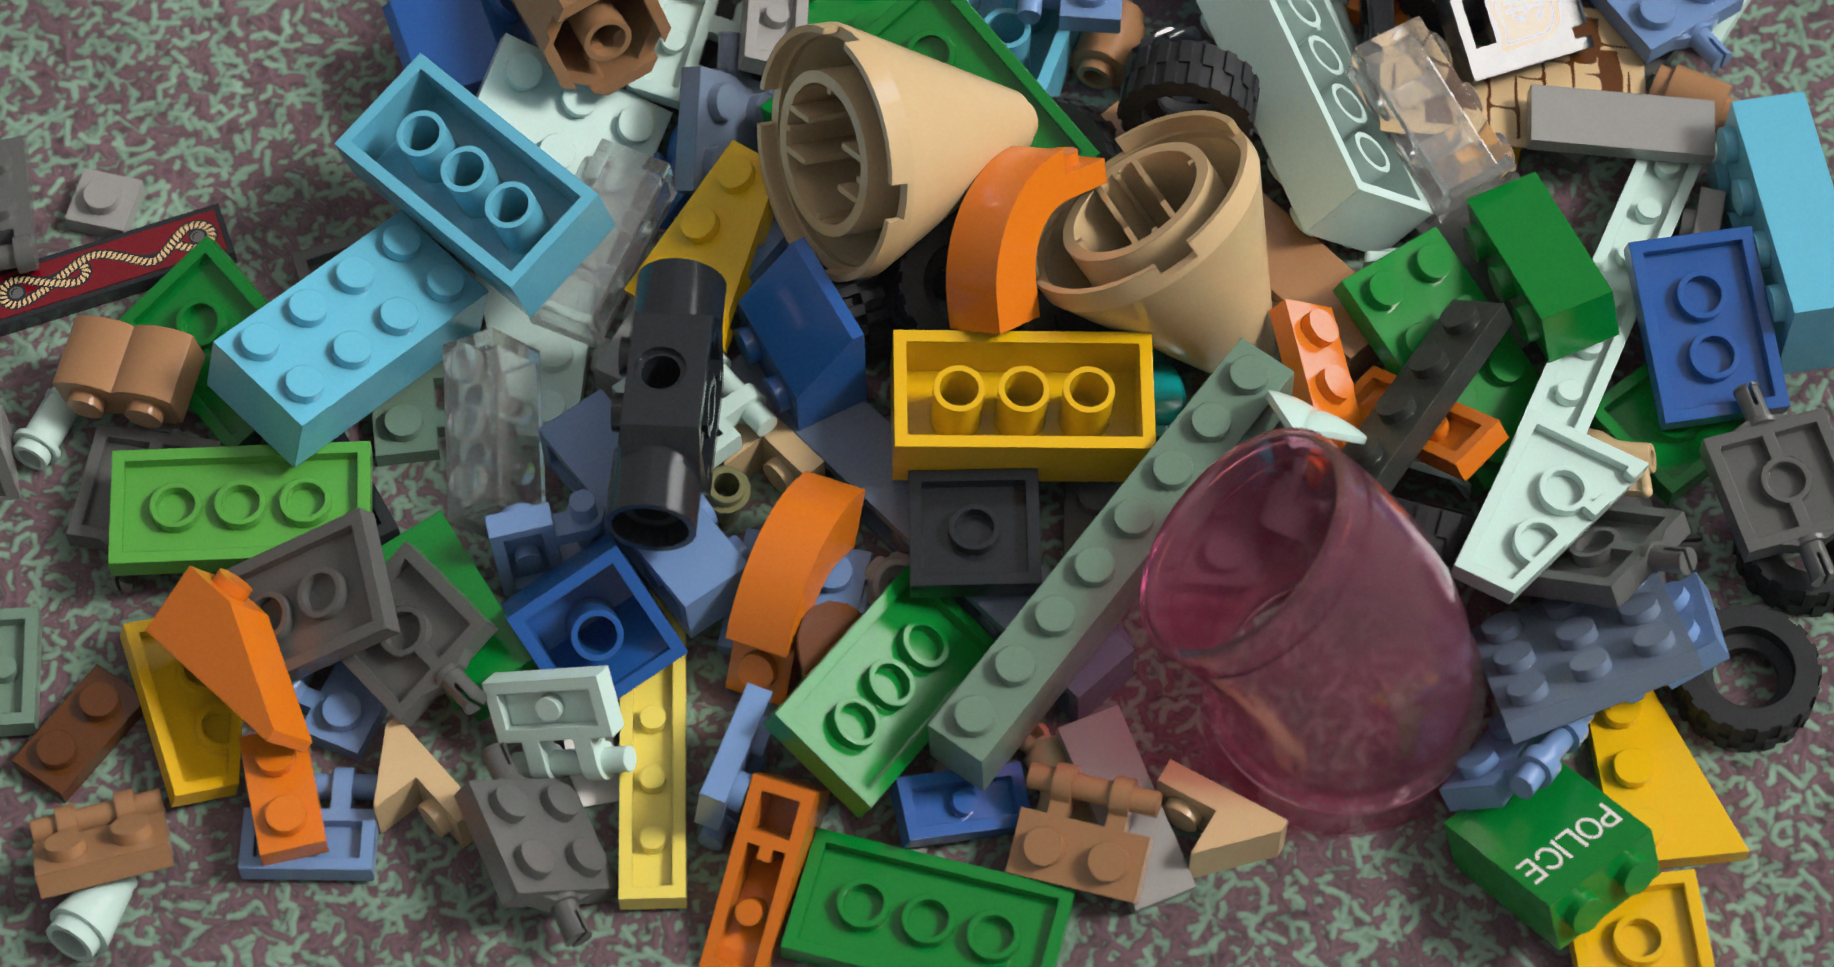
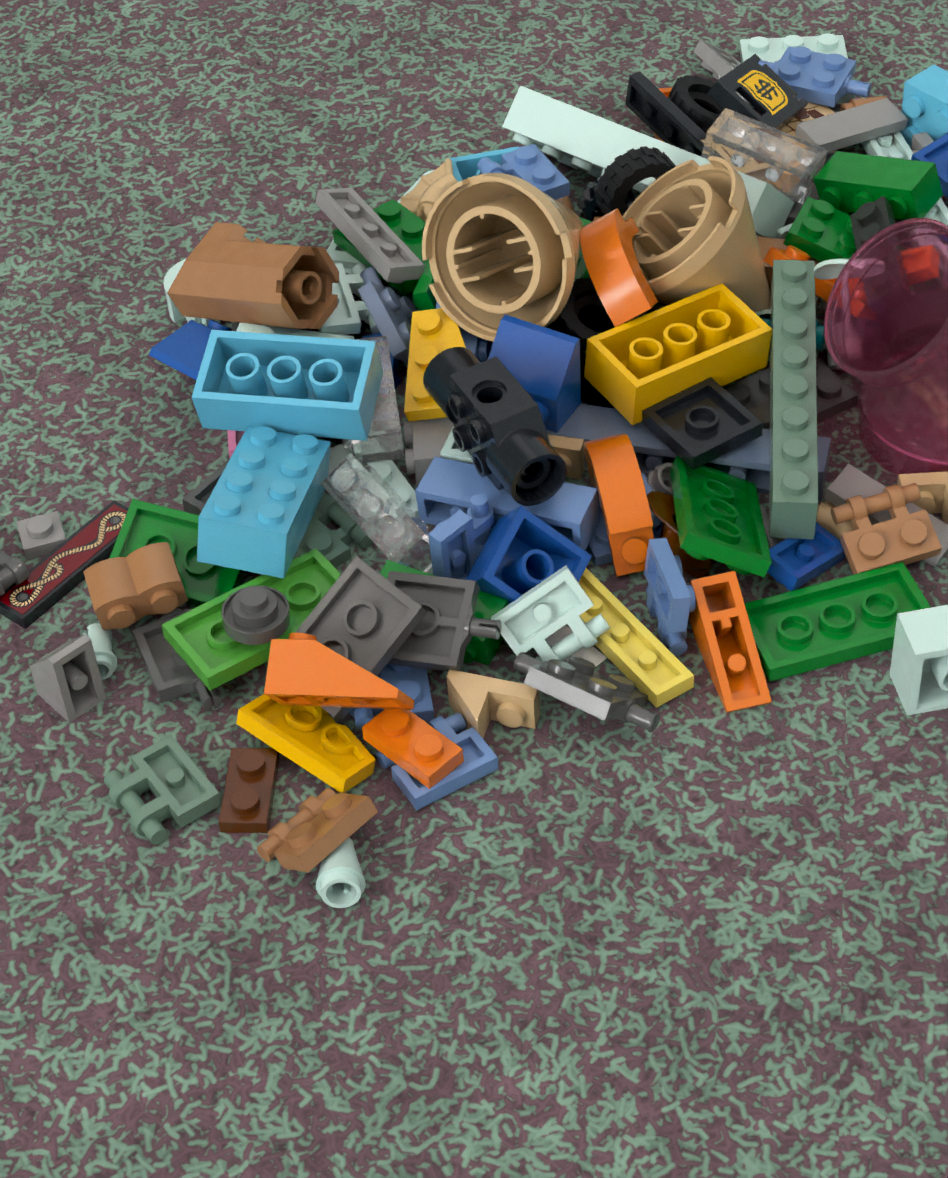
camera: 30 degrees left, 15 degrees down
(211, 511) = (255, 615): none -> dark grey plate

